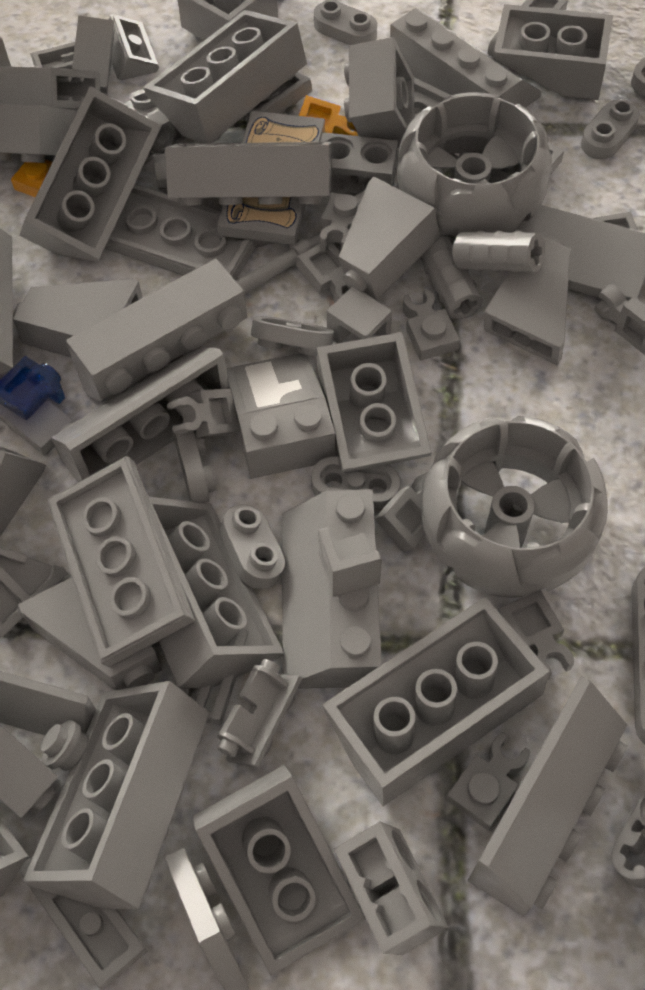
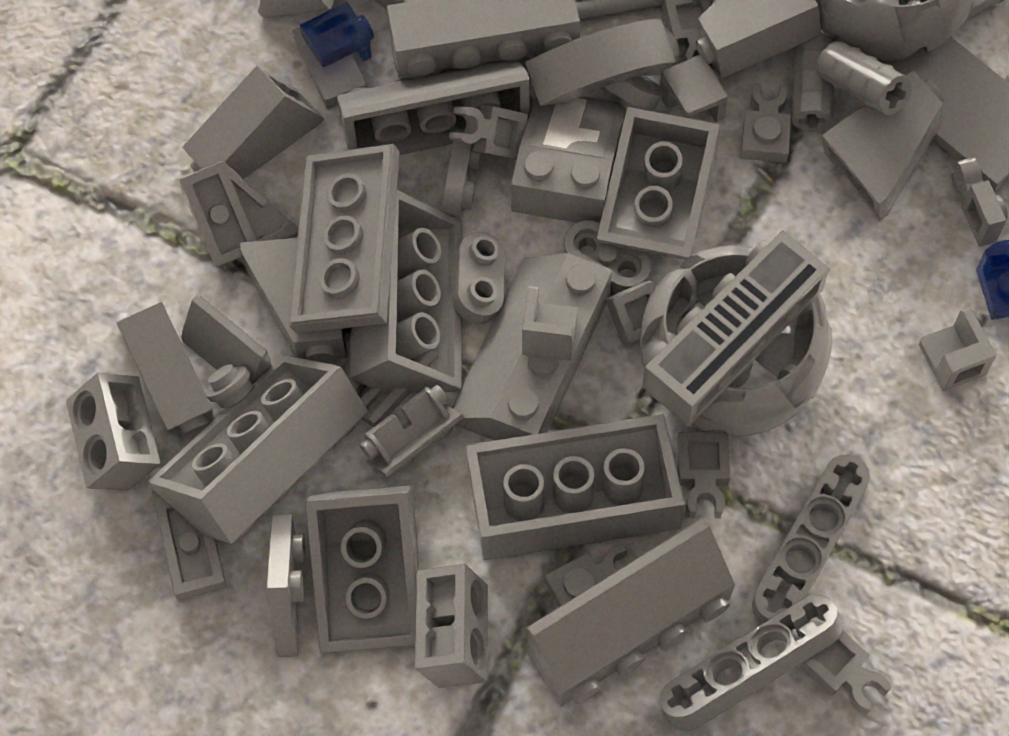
camera: 25 degrees right, 5 degrees up
(273, 320) = (602, 59): none -> light grey arch
(524, 492) = (733, 327): none -> light grey brick

